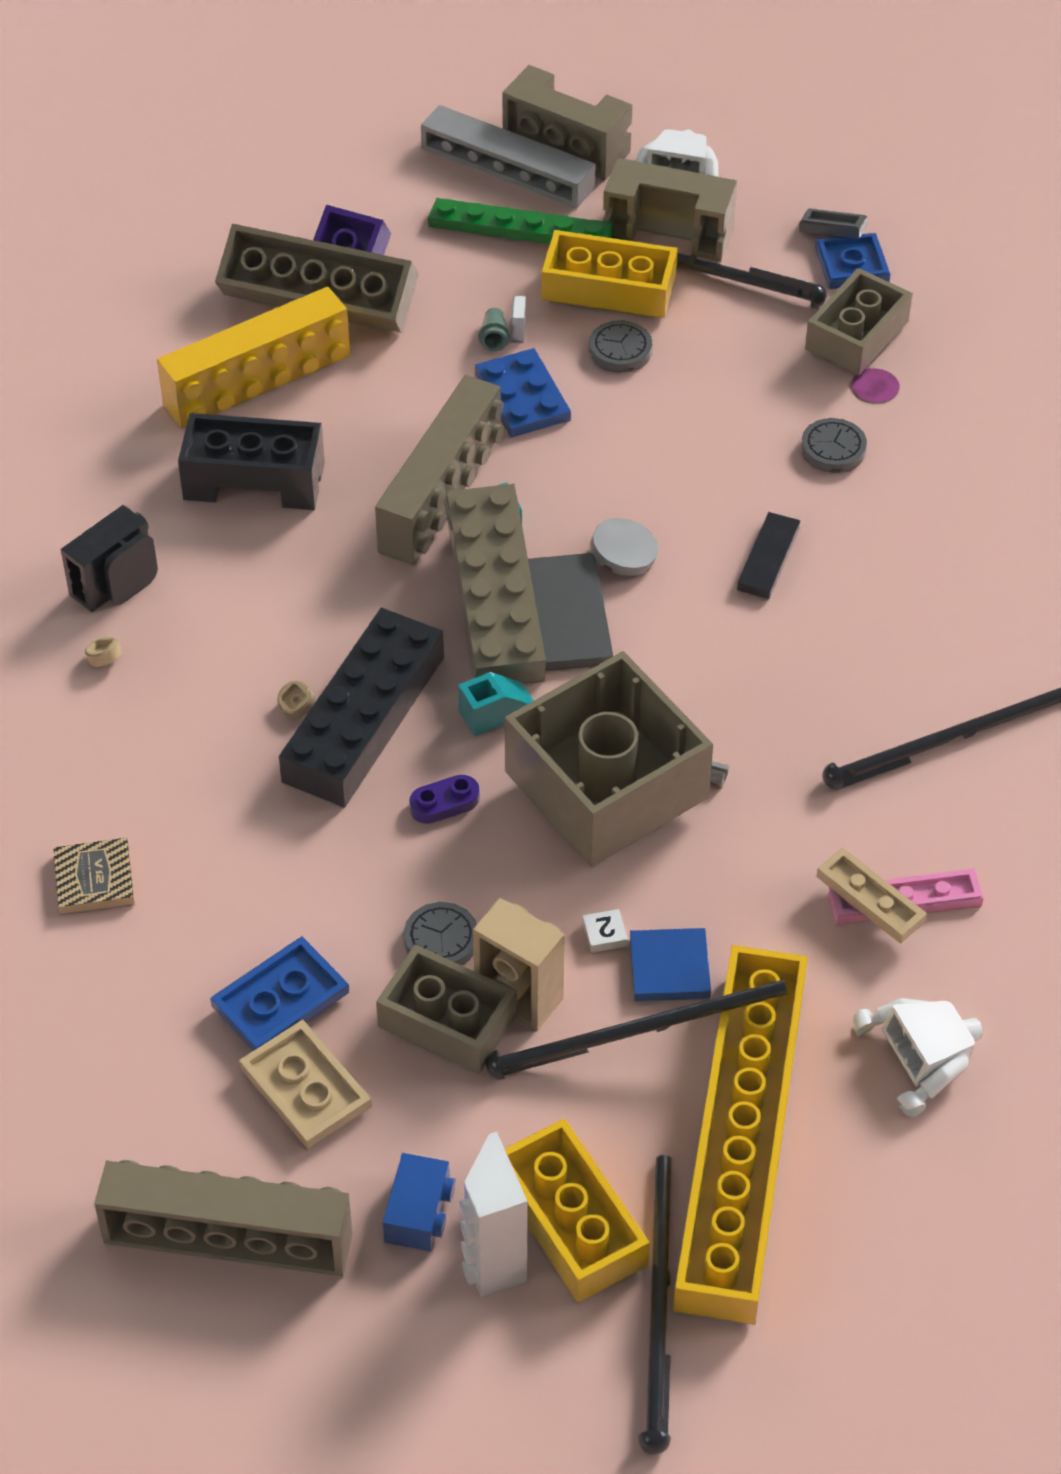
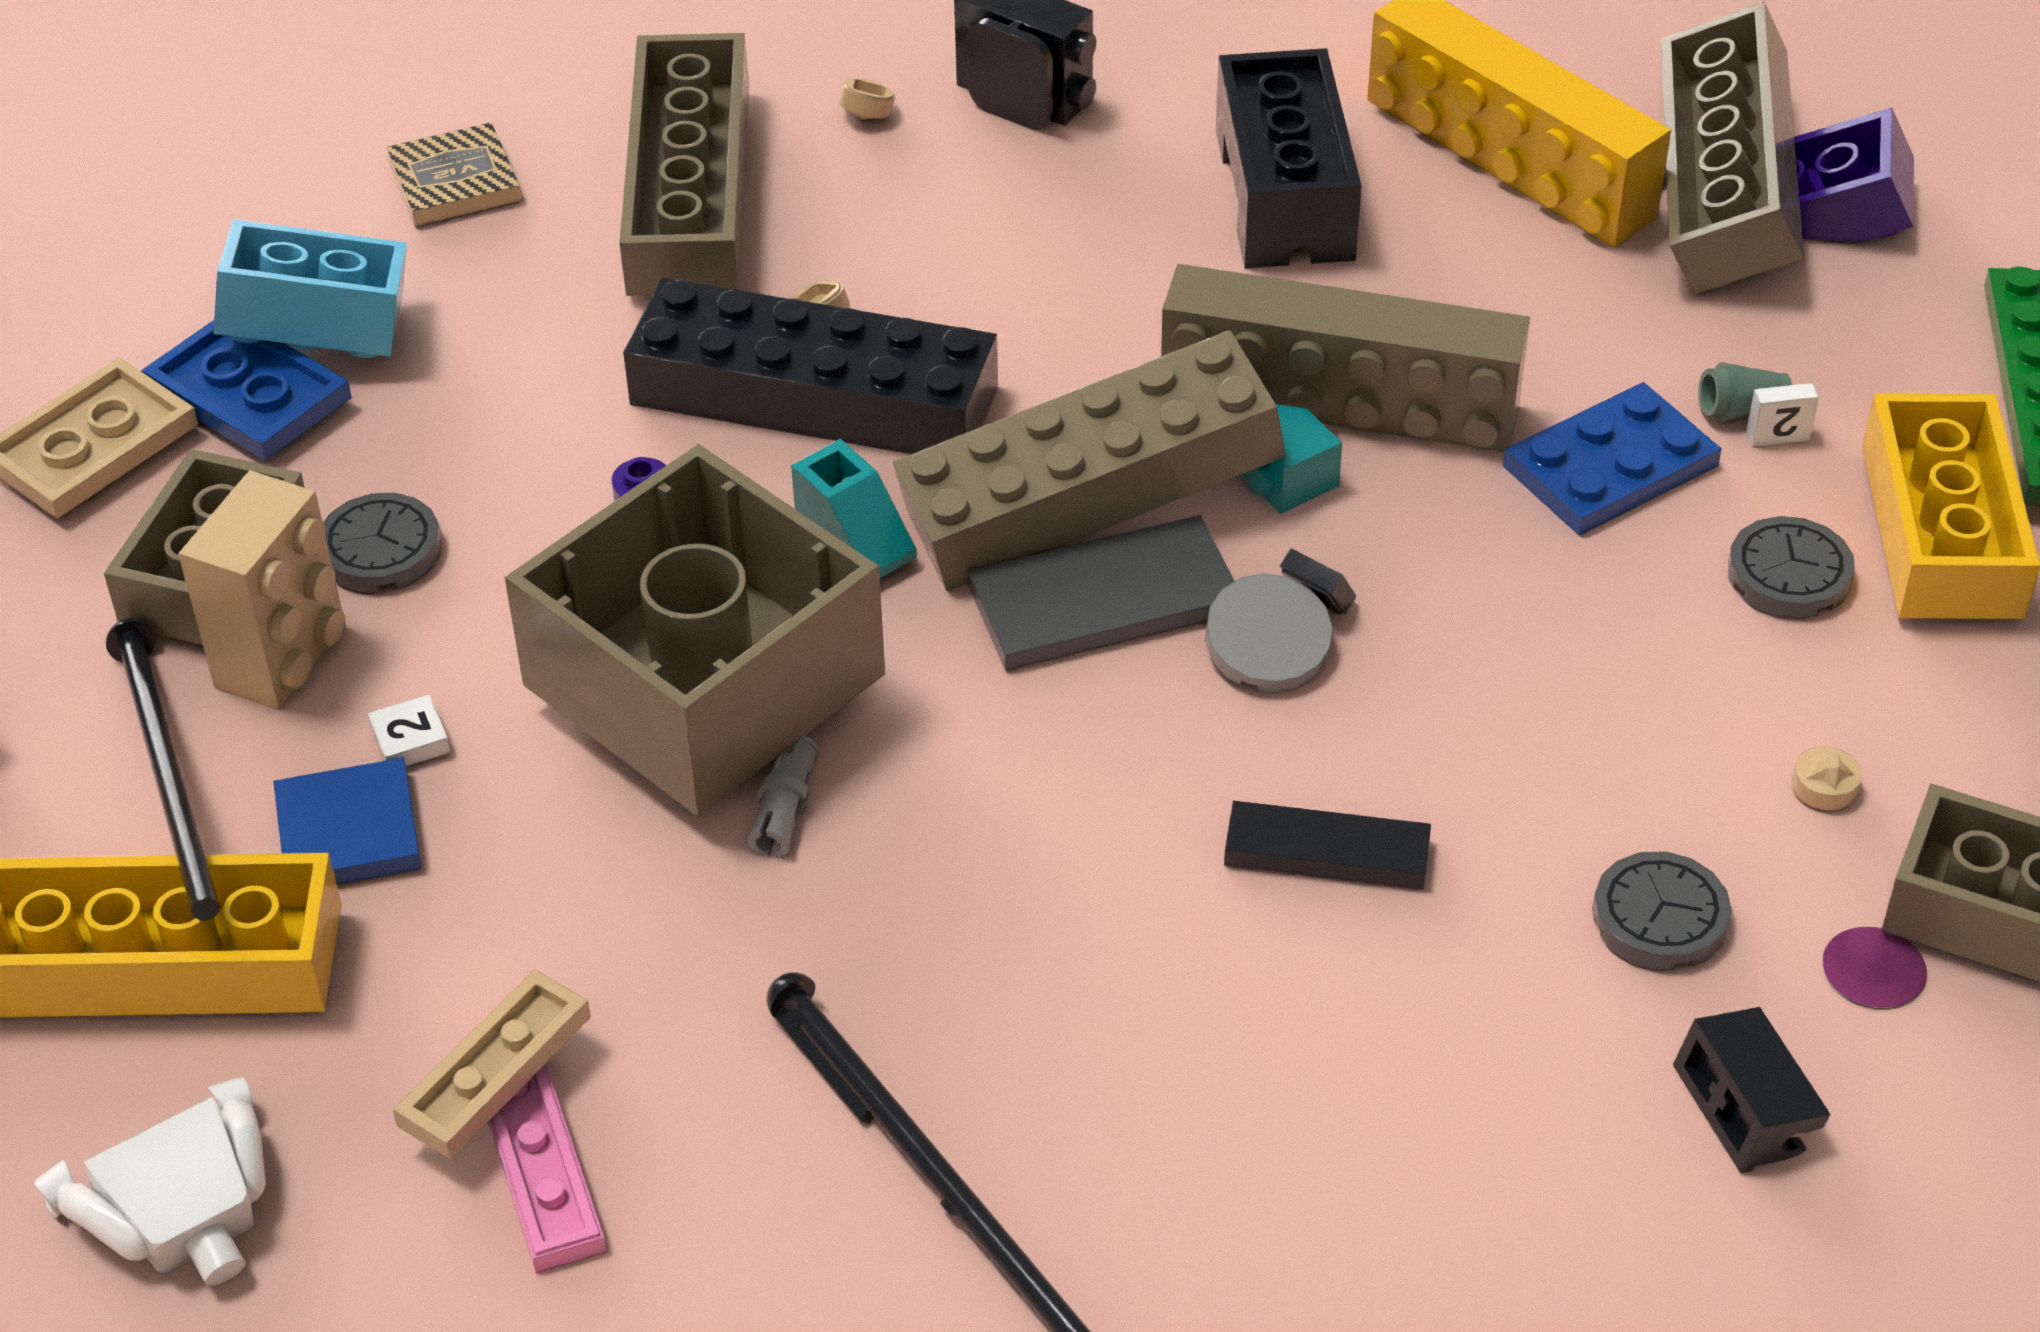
camera: 80 degrees right, 5 degrees down
(150, 740) = (685, 162): none -> dark tan brick
(227, 938) = (309, 288): none -> medium azure brick
(590, 521) = (1325, 582): none -> black tile
(763, 369) = (1826, 778): none -> tan tile
(949, 438) = (1749, 1087): none -> black hinge

